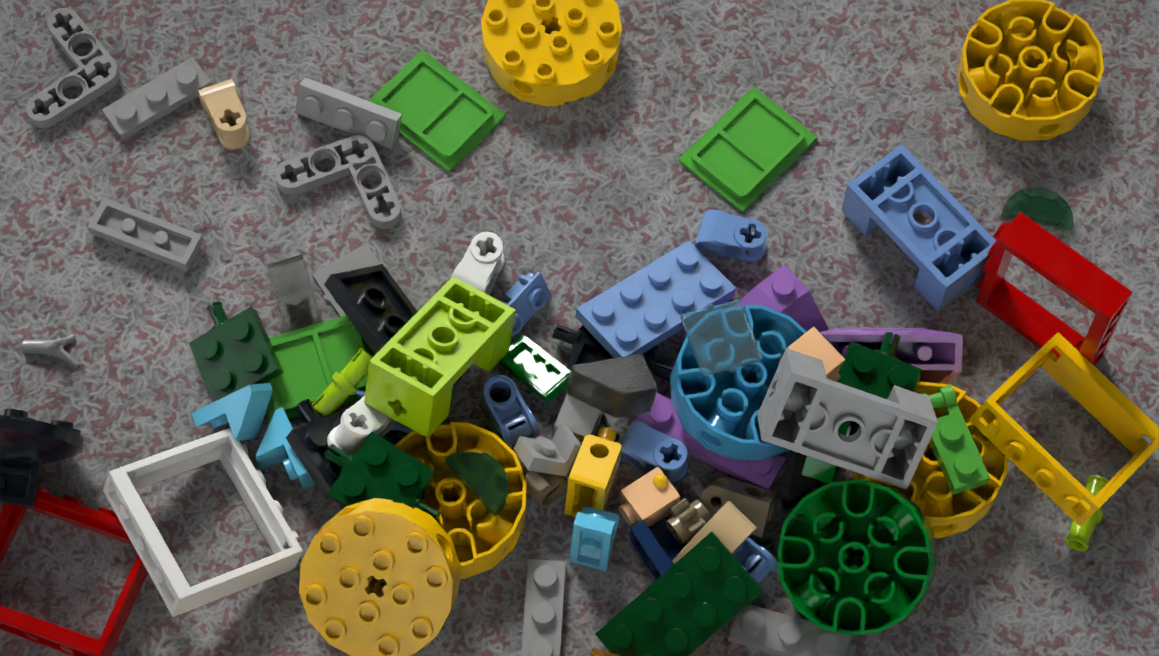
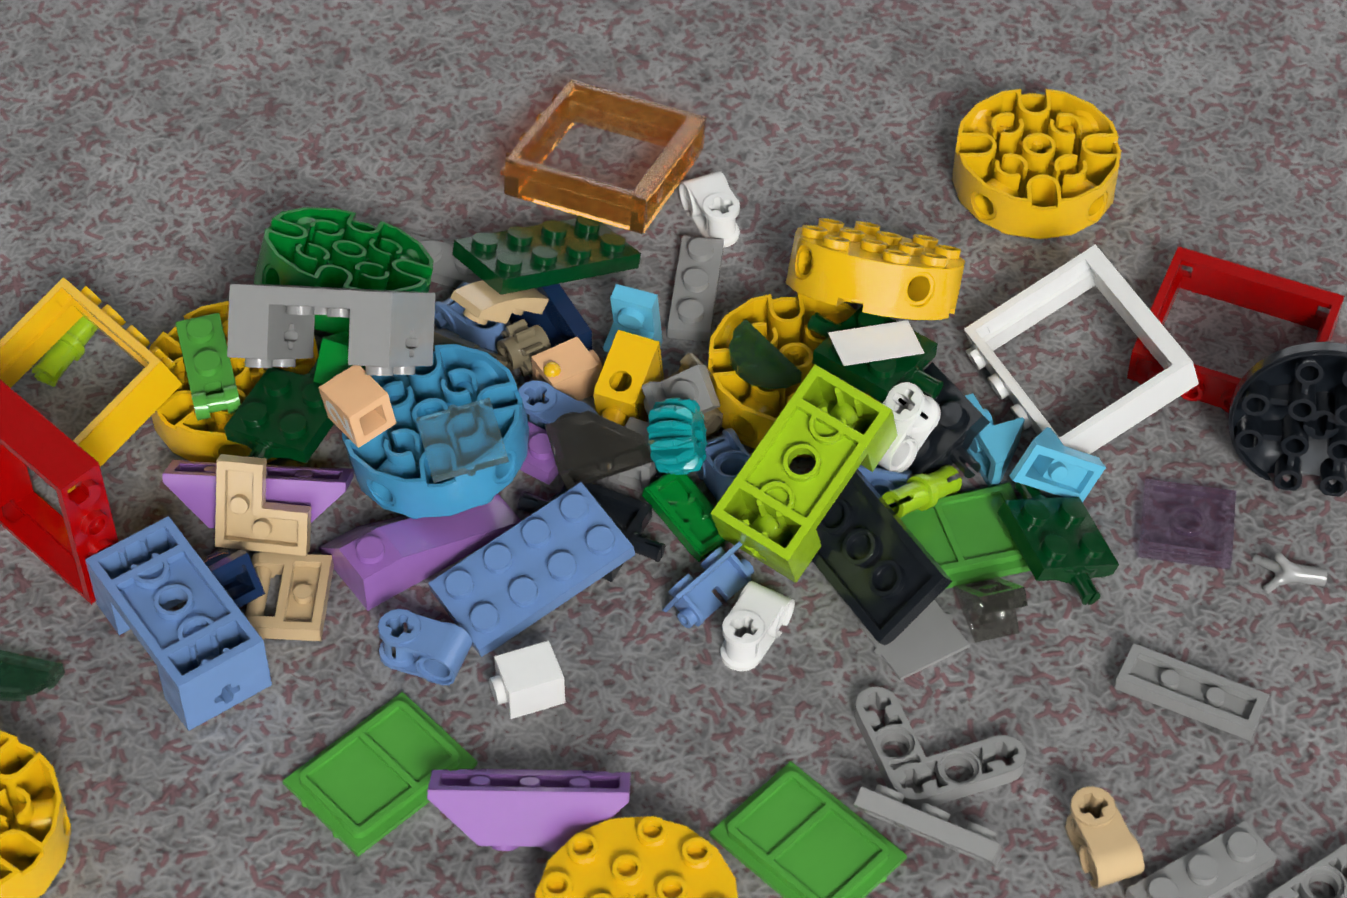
camera: 175 degrees left, 15 degrees down
(128, 391) = (1187, 524): none -> clear purple tile
(381, 474) = (875, 343): none -> white sticker
(547, 392) = (677, 436): none -> teal gear
(635, 116) = (527, 806): none -> medium lavender wedge
(647, 212) = (528, 680): none -> white brick
(833, 279) = (301, 595): none -> tan plate
(890, 317) = (246, 518): none -> tan plate
(894, 276) = (235, 575): none -> dark blue leg

